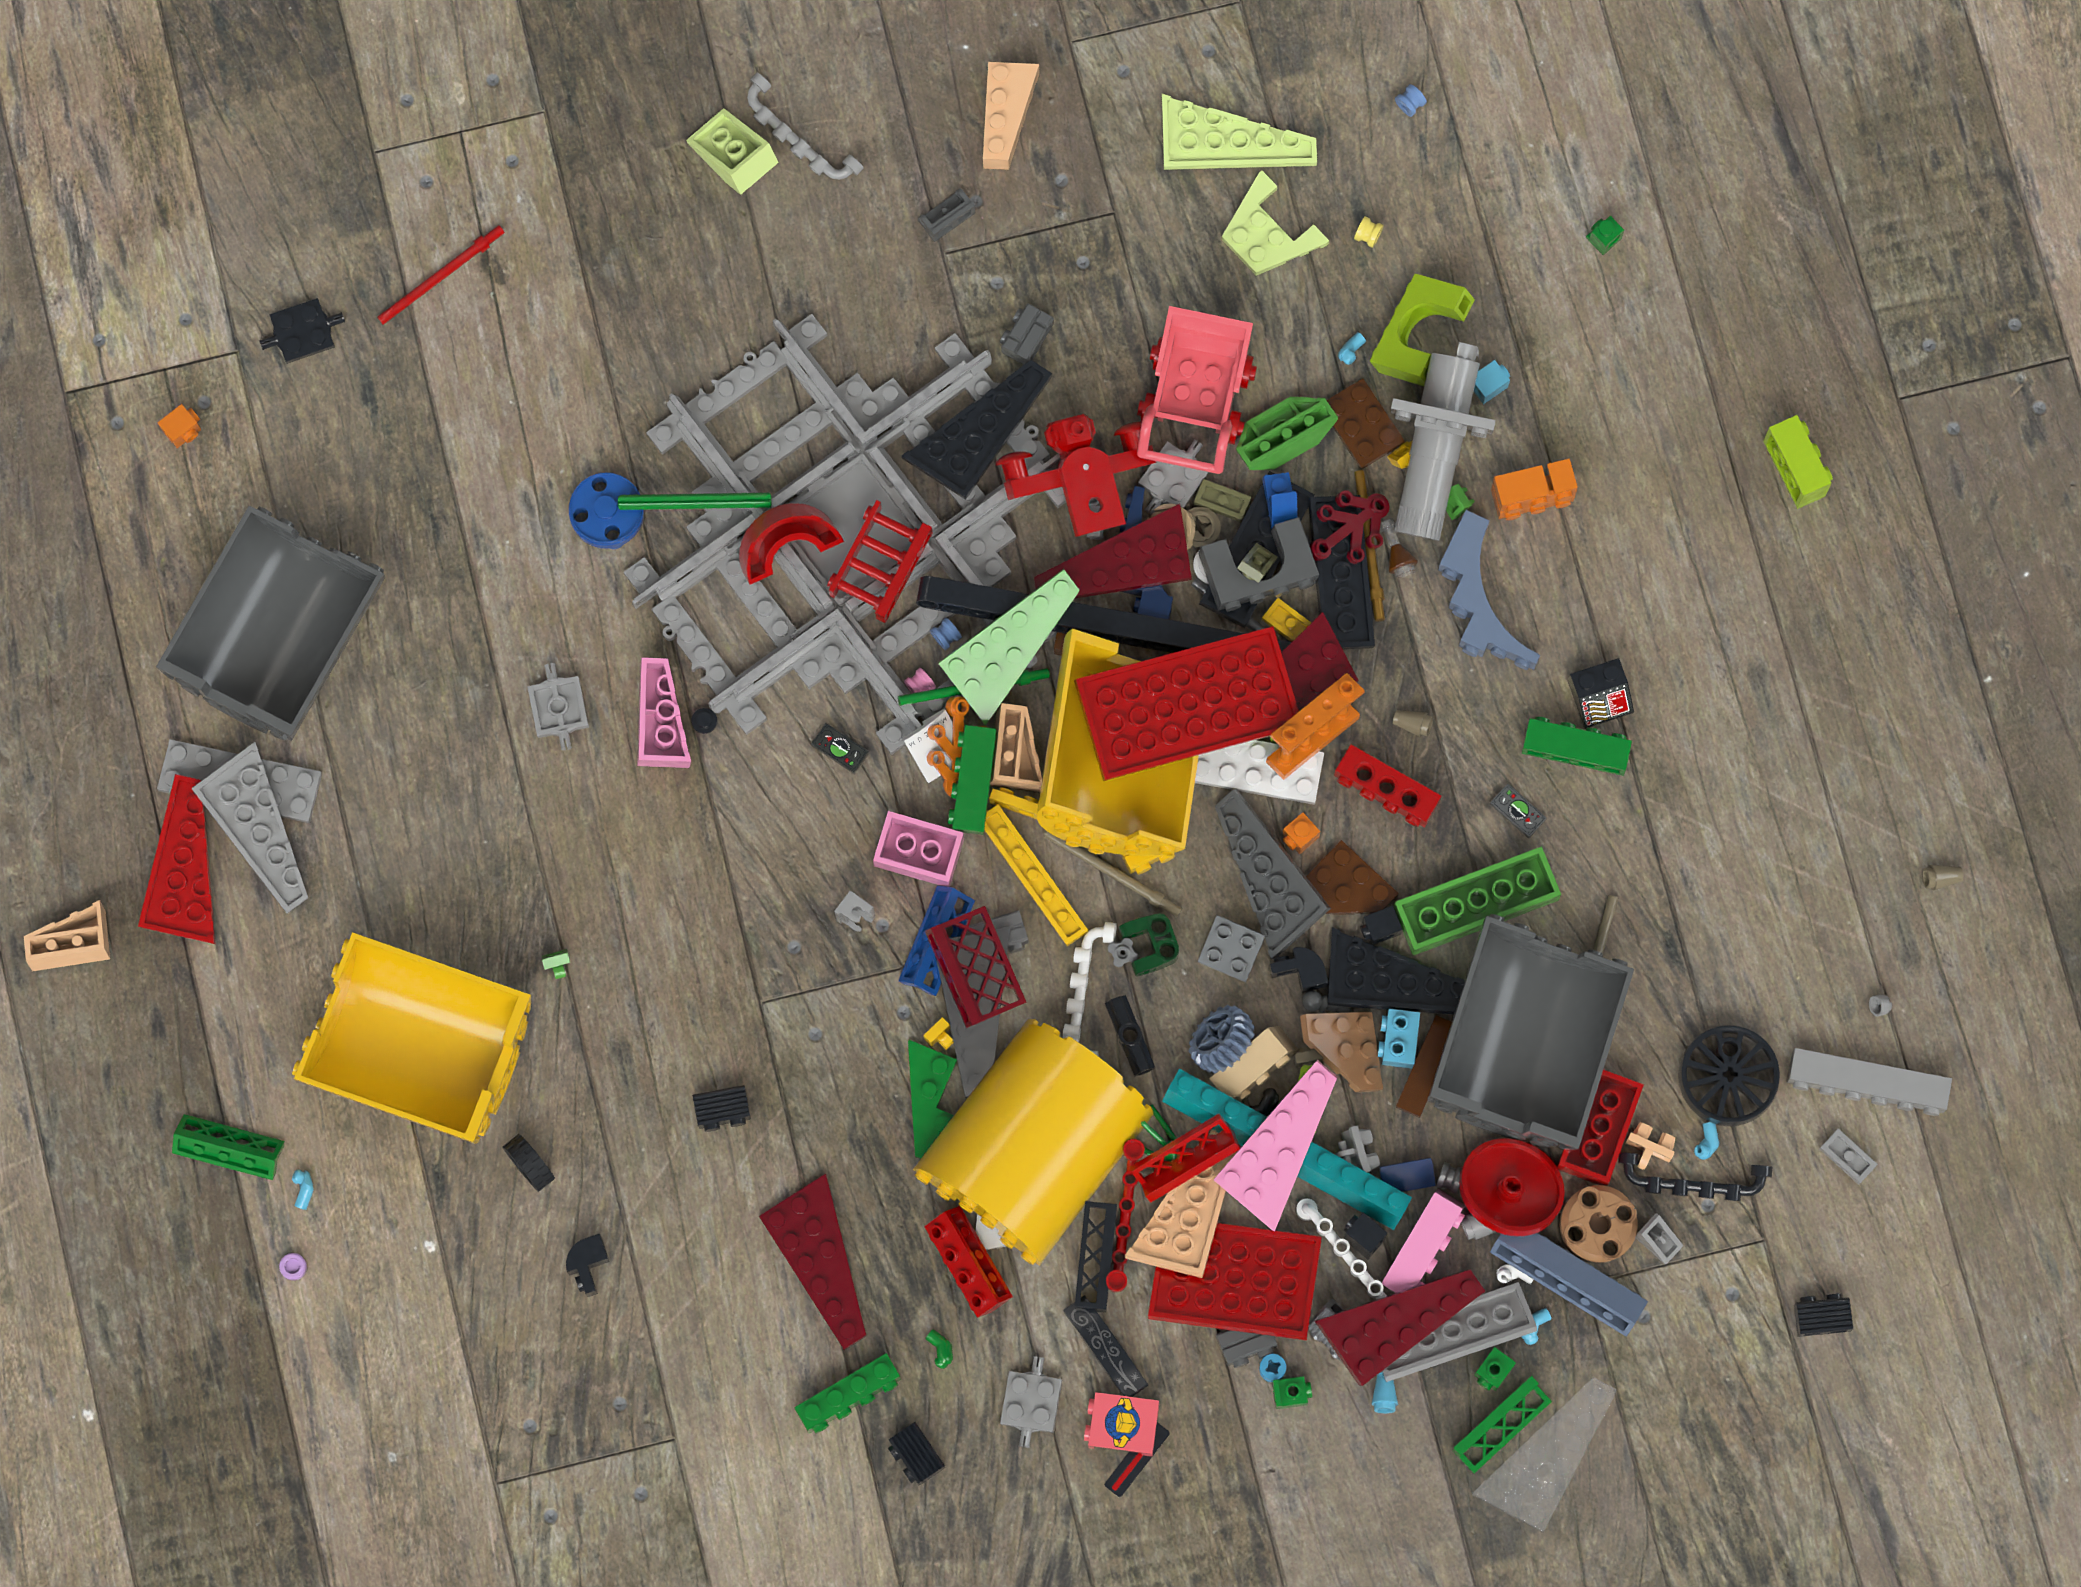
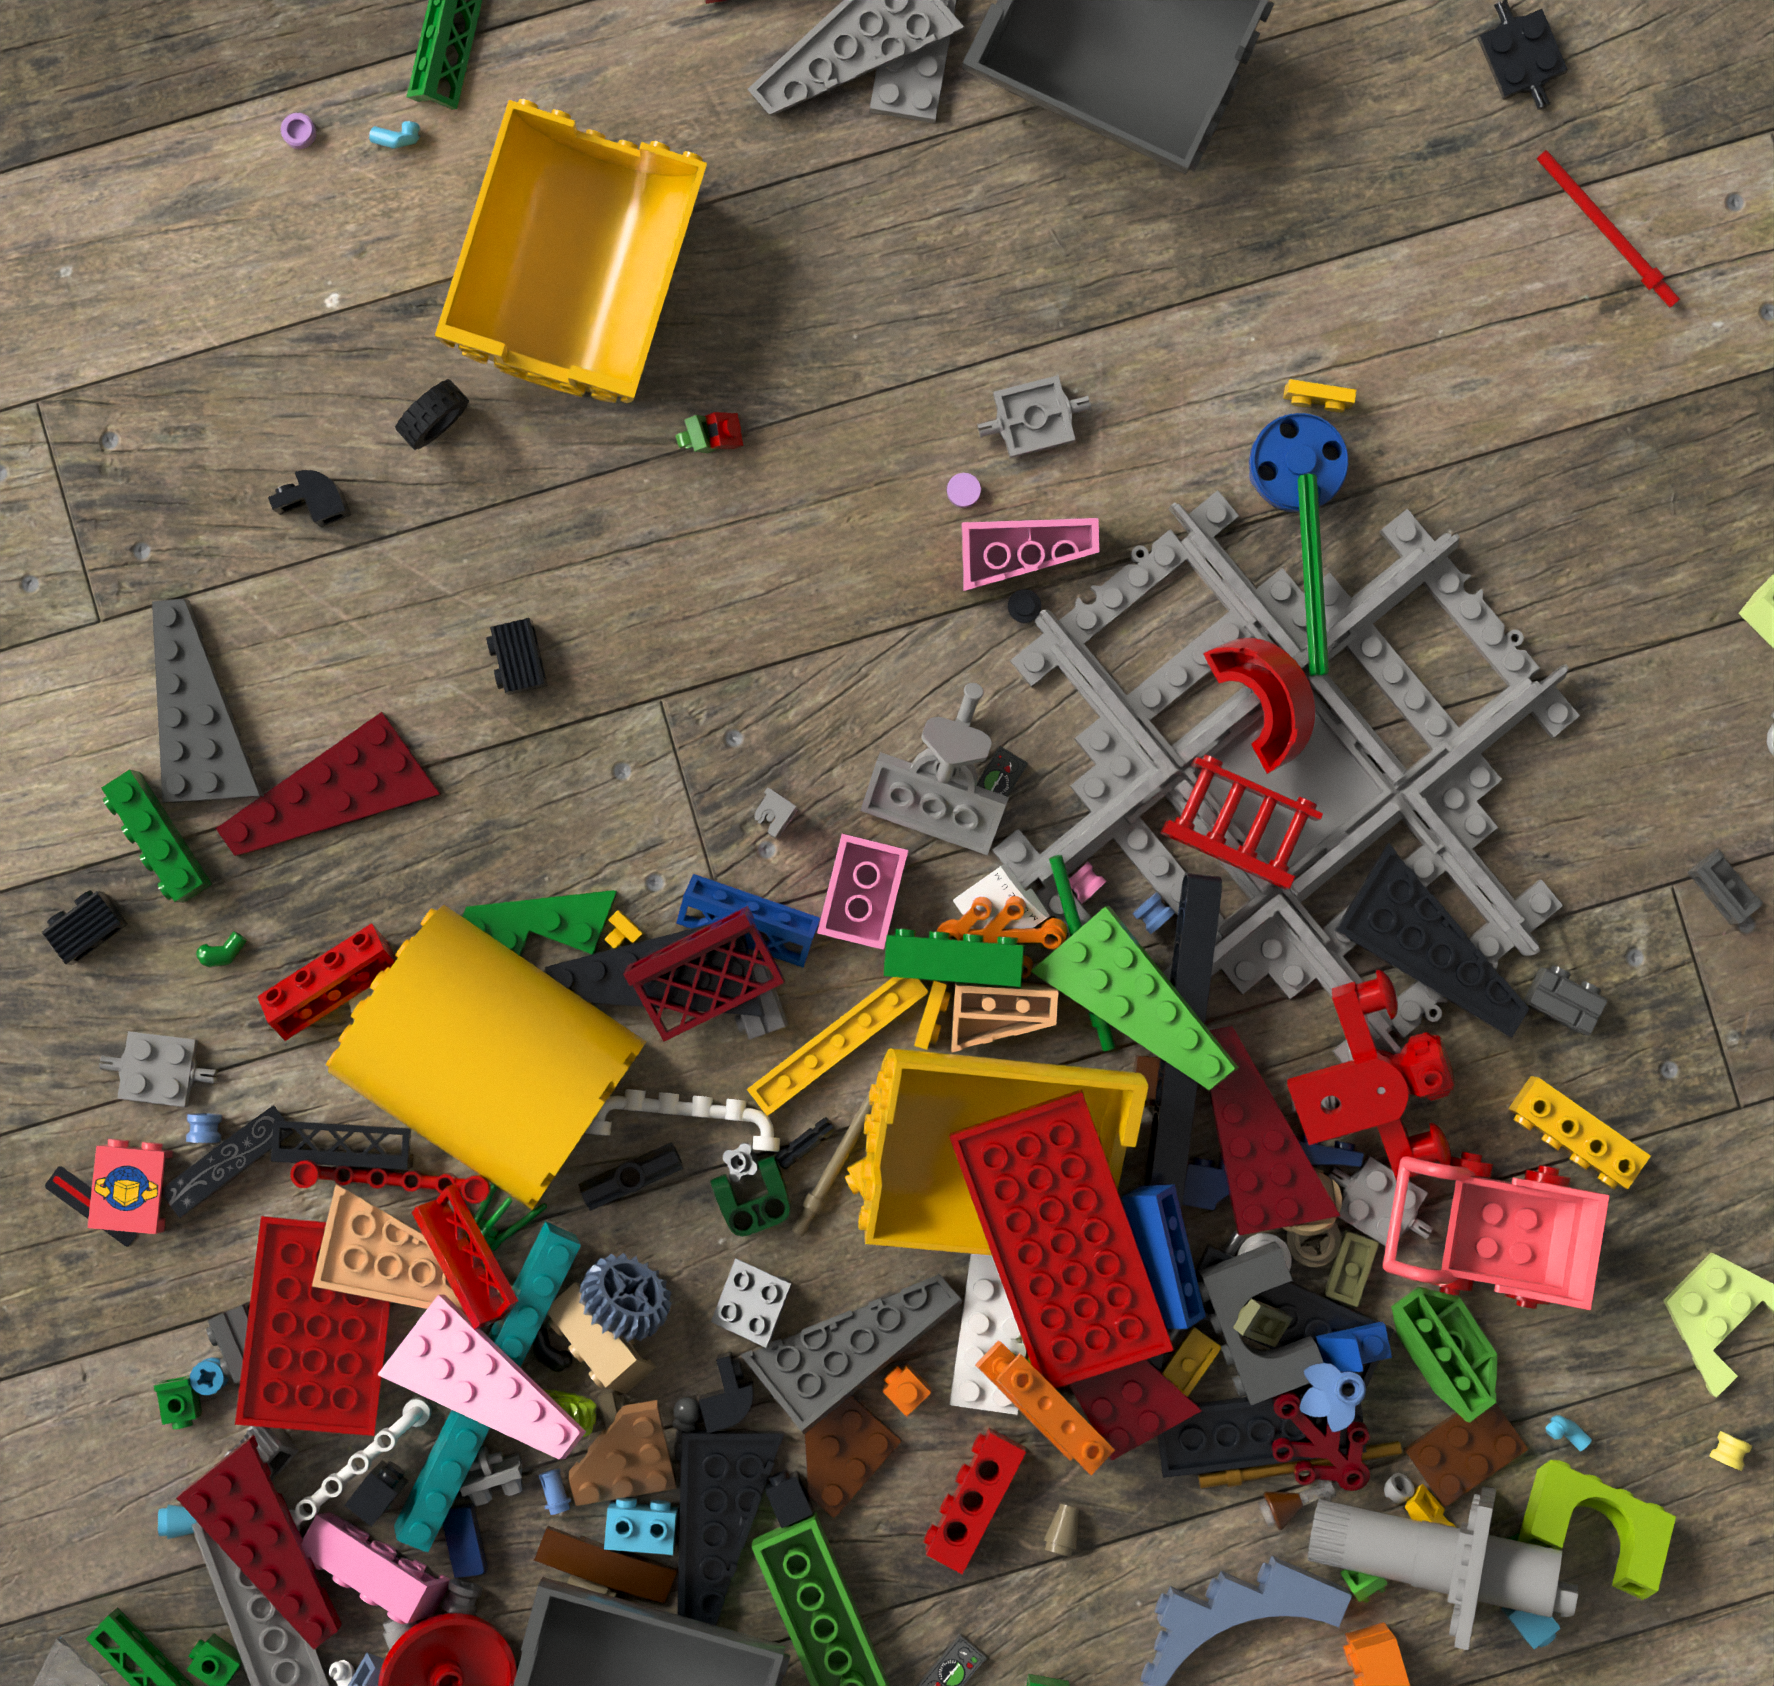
camera: 85 degrees right, 10 degrees up
(554, 941) = (724, 430): none -> red plate
(558, 482) = (1334, 398): none -> yellow plate
(611, 763) = (963, 490): none -> lavender tile
(769, 1360) = (195, 723): none -> dark grey wing
(849, 789) = (934, 794): none -> light grey plate
(1078, 1365) = (203, 1128): none -> medium blue wheel
(1110, 903) = (805, 1143): none -> black axle
(1127, 329) = (1578, 1132): none -> yellow brick
(1200, 628) = (1165, 1252): none -> blue brick
(1315, 517) = (1327, 1397): none -> medium blue plate
(1371, 1104) = (554, 1492): none -> medium blue pin
(1389, 473) = (1402, 1482): none -> light grey hinge

